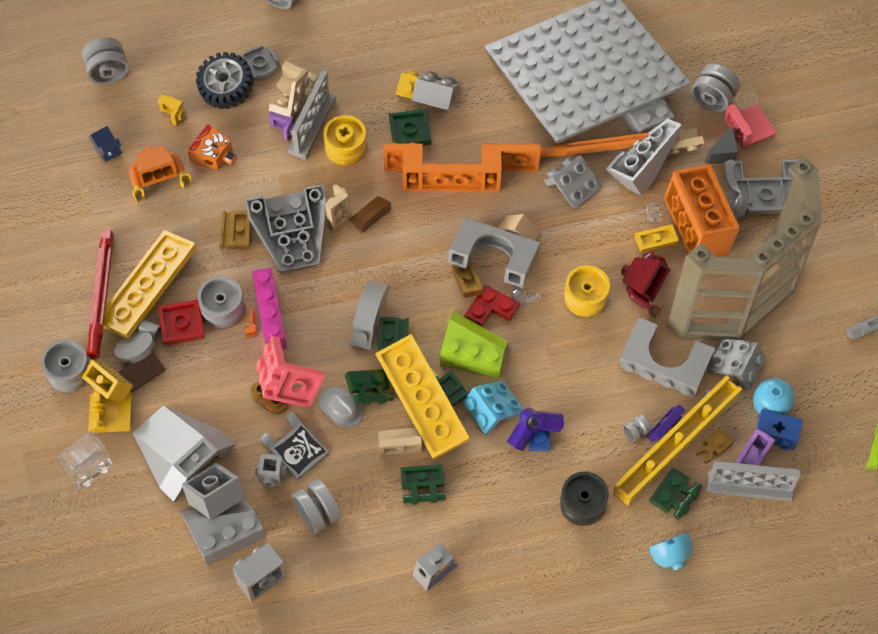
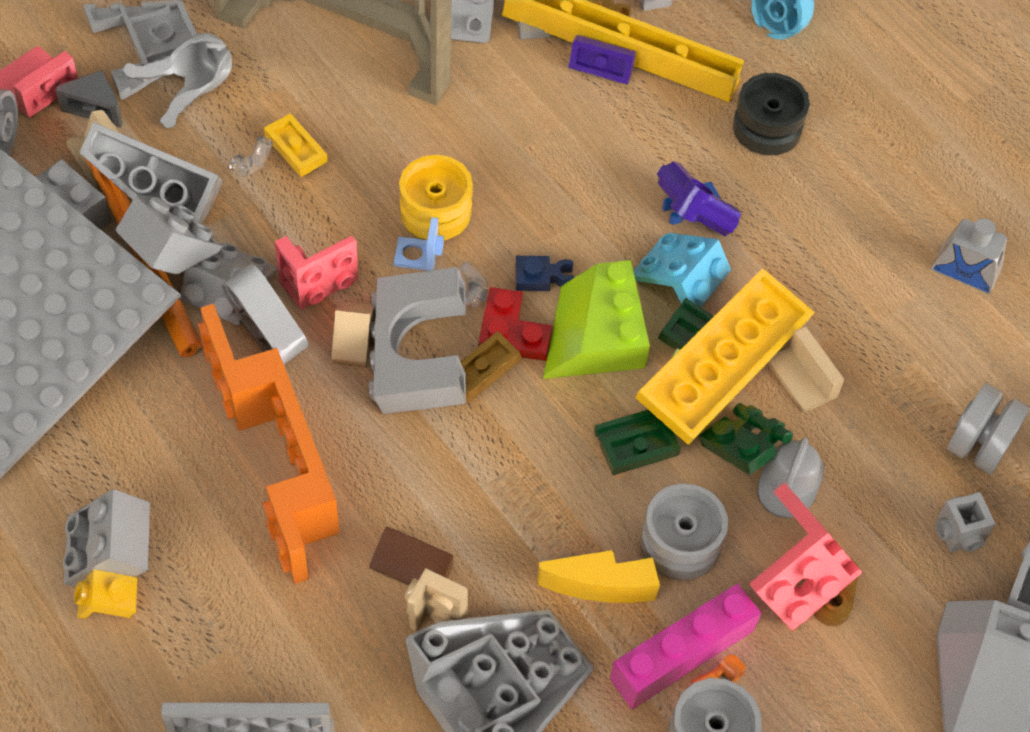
camera: 115 degrees left, 5 degrees down
(298, 448) = (898, 511): flag -> none
(321, 289) = (600, 578): none -> yellow slope
(327, 331) = (684, 531): none -> light grey wheel
(345, 140) = (278, 653): yellow wheel -> none
(367, 313) = (608, 476): light grey arch -> none
(410, 127) = (207, 559): dark green plate -> none
(420, 478) = (848, 323): dark green plate -> none
(521, 332) = (537, 273): none -> dark blue plate
(534, 182) = (264, 313): none -> beam
(556, 207) = (318, 276): none -> coral bracket
(556, 279) = (430, 248): none -> light blue bracket
(597, 146) = (166, 235): none -> light grey slope
(636, 428) = (626, 89): light grey wheel -> none
(645, 279) = (381, 131): dark red torso -> none
(669, 491) = (705, 35): dark green plate -> none
(683, 378) = (509, 116): light grey arch -> none
(701, 210) = (241, 79): orange brick -> none

